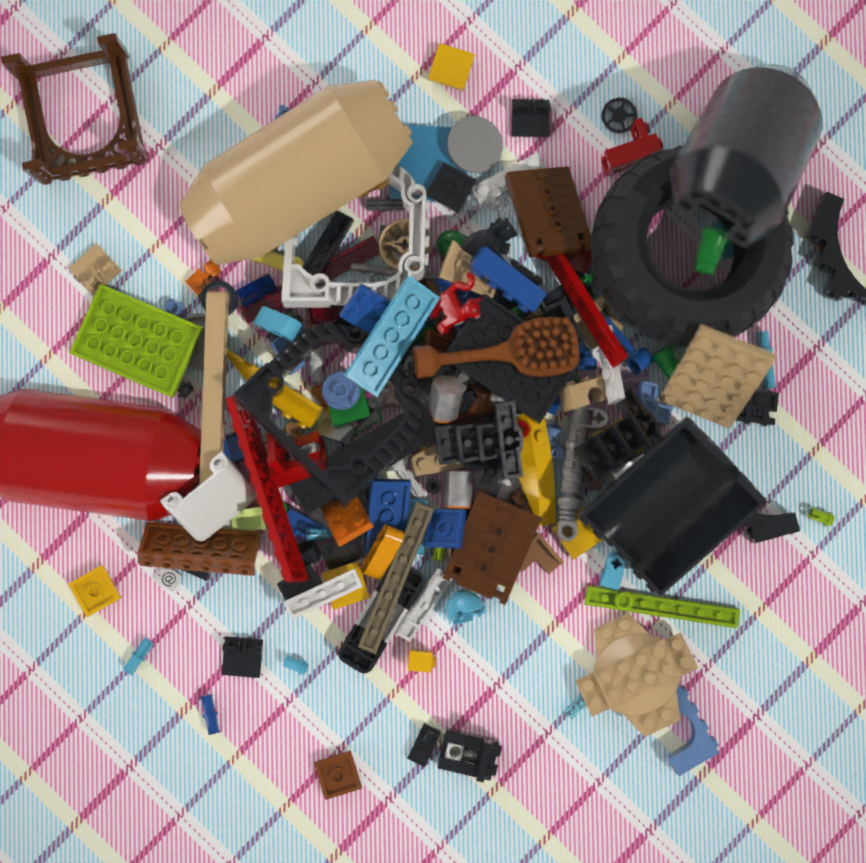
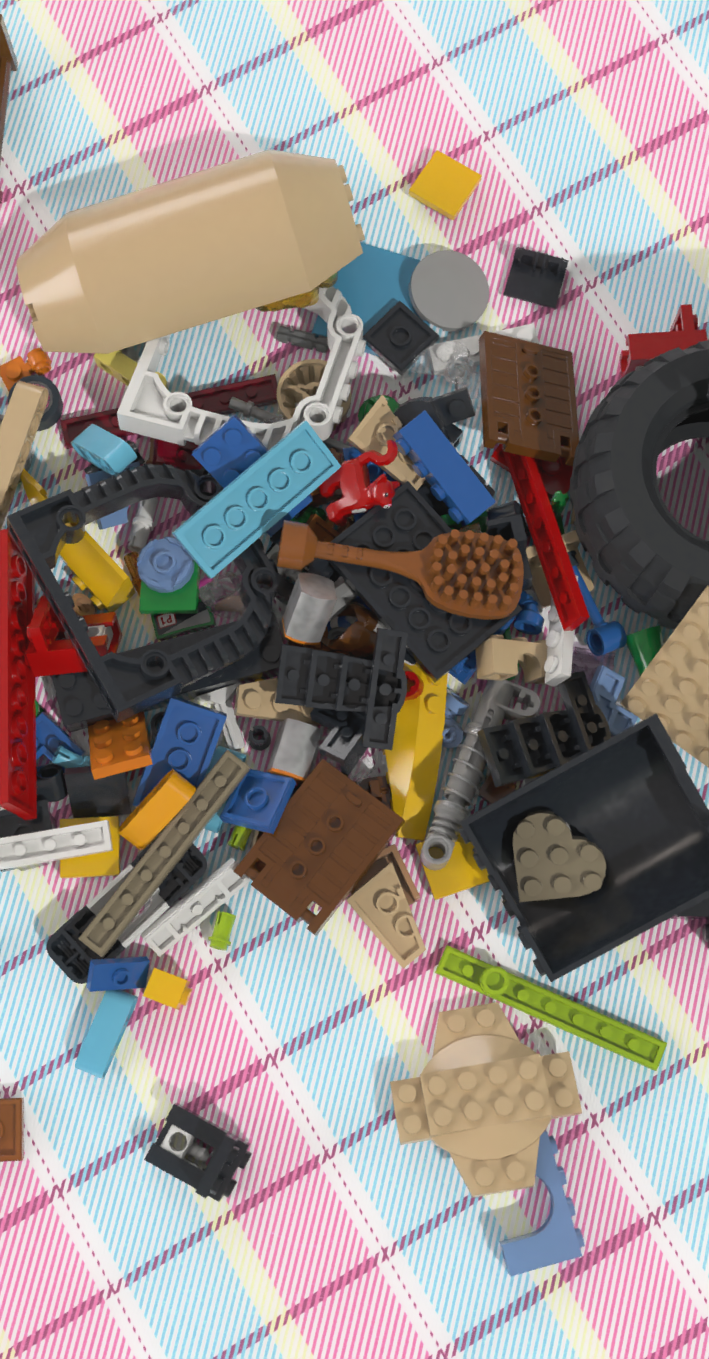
camera: 10 degrees right, 10 degrees down
(256, 290) = (91, 404): clear blue tile -> none
(328, 243) = (211, 365): black plate -> none
(338, 433) = (143, 625): light grey slope -> none
(388, 660) = (117, 973): none -> blue plate
(390, 697) = (106, 1032): none -> medium azure beam
(424, 744) = (135, 1120): black hinge -> none
(443, 620) = (222, 931): none -> lime pin
(464, 606) = (254, 925): medium azure cylinder -> none
(546, 577) = (388, 915): none -> tan wing
(577, 705) = (380, 1125): clear light blue pin -> none
(612, 574) = (486, 937): medium azure piece -> none
(618, 115) = (659, 304): black wheel -> none
(642, 517) = (553, 861): none -> dark tan plate

